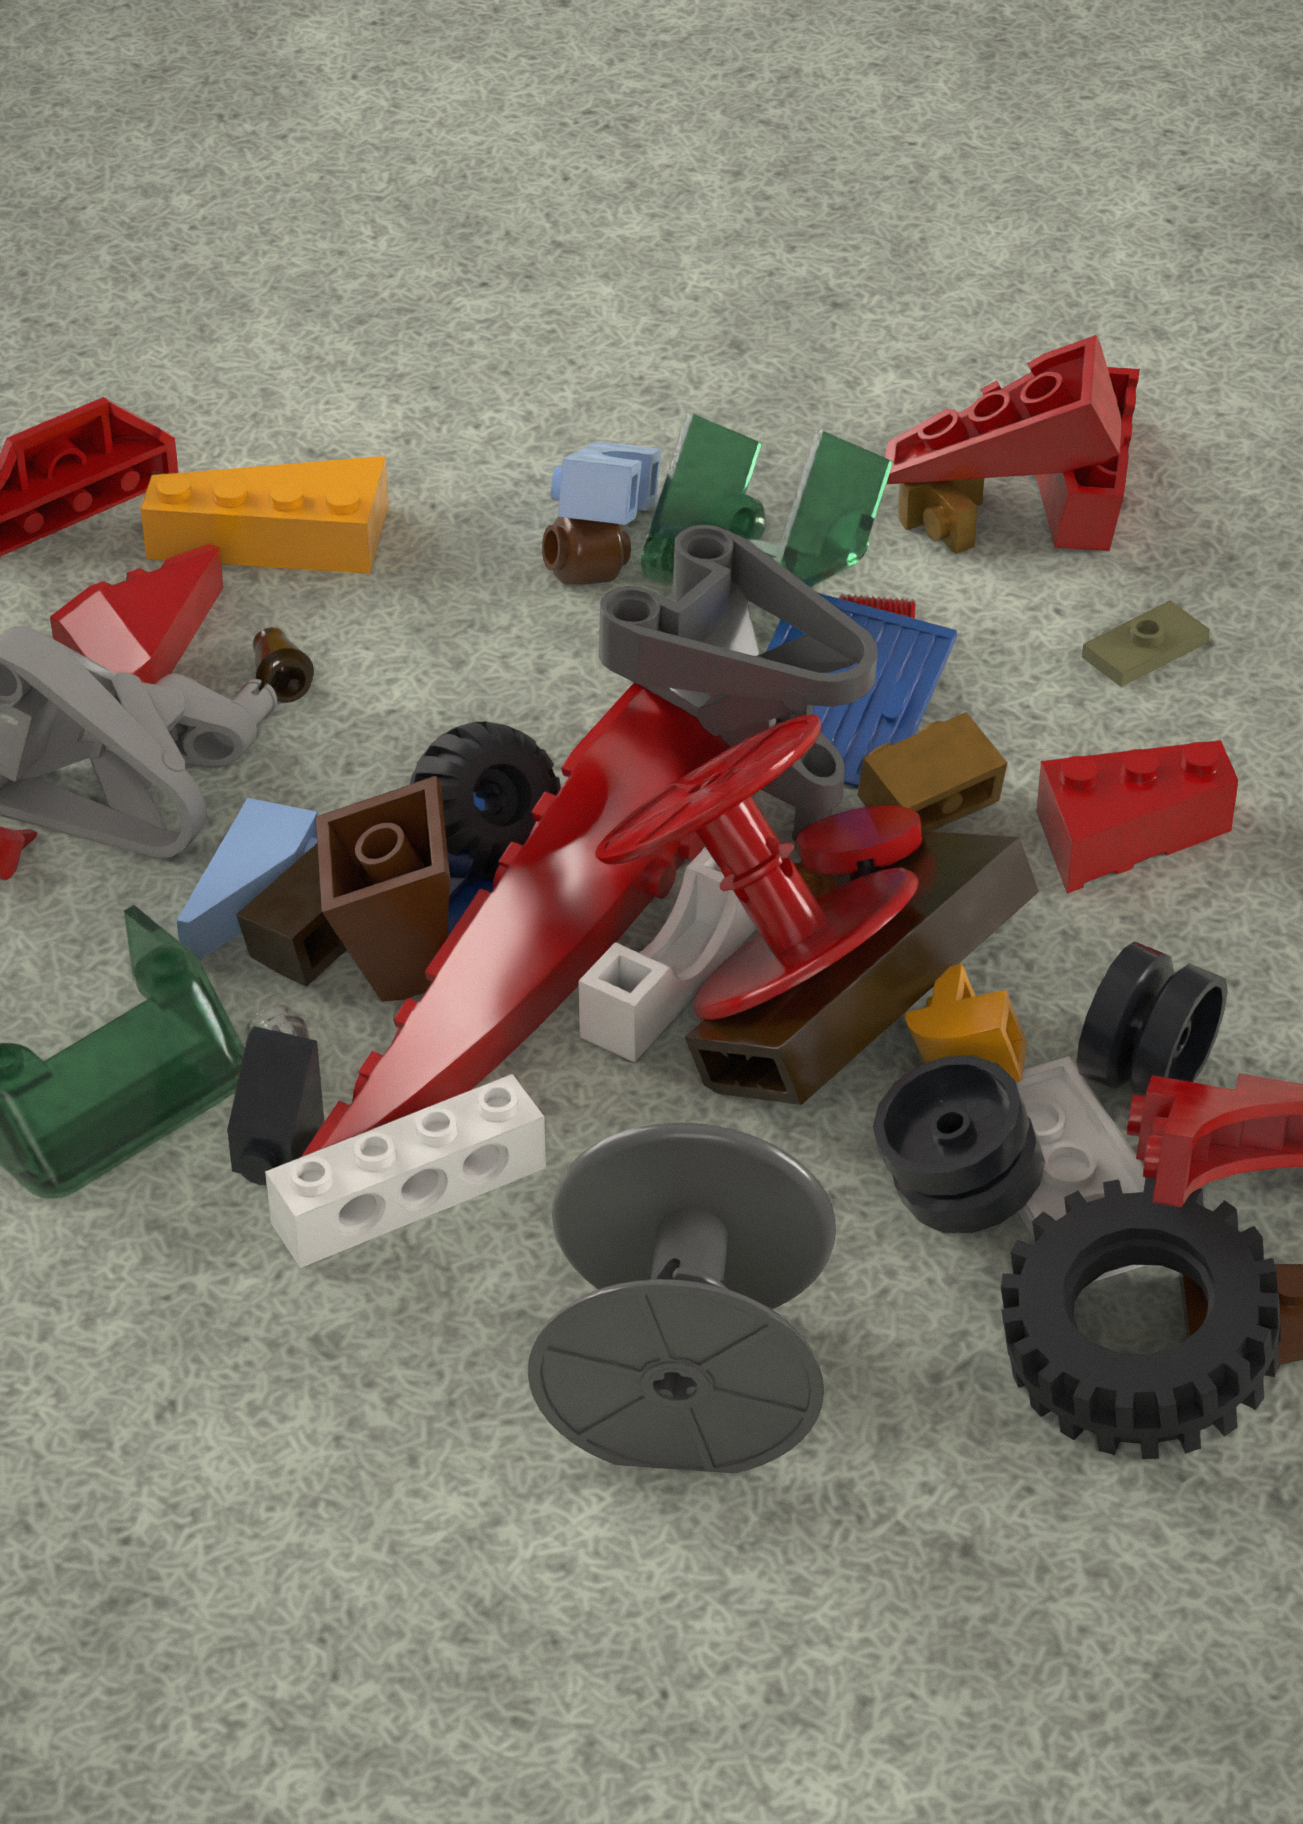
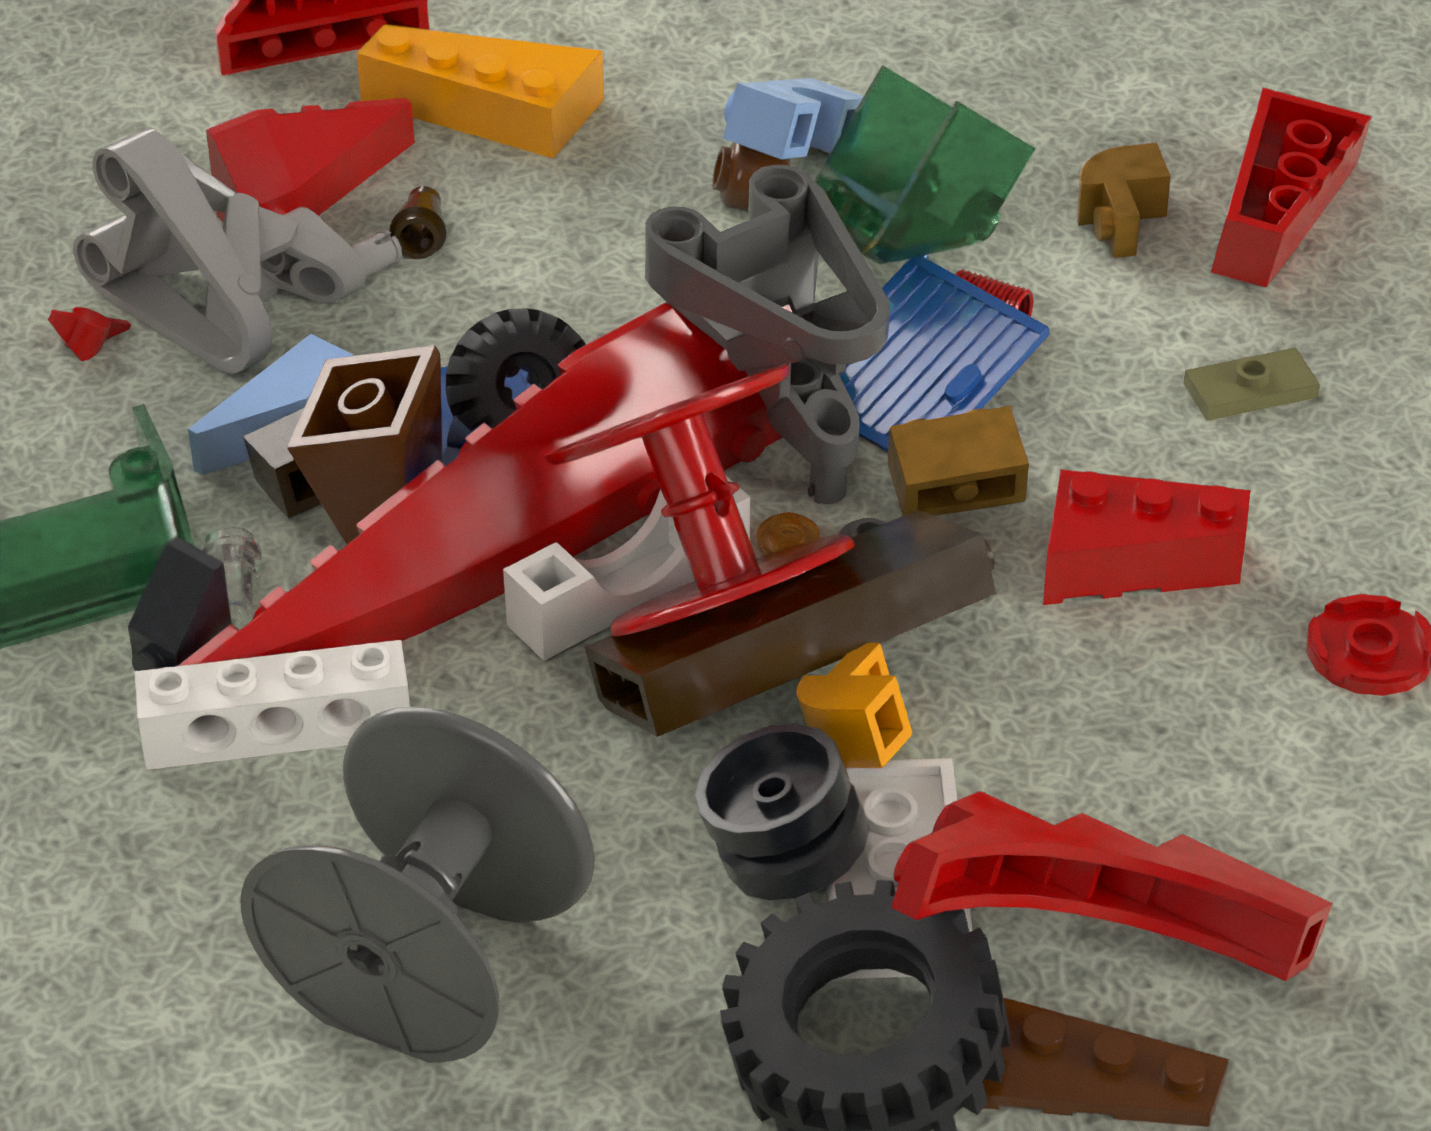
camera: 20 degrees right, 0 degrees up
(859, 834) = (853, 500): red tile -> none
(1037, 425) = (1214, 149): red wedge -> none
(1150, 1021) = (1030, 742): black wheel -> none

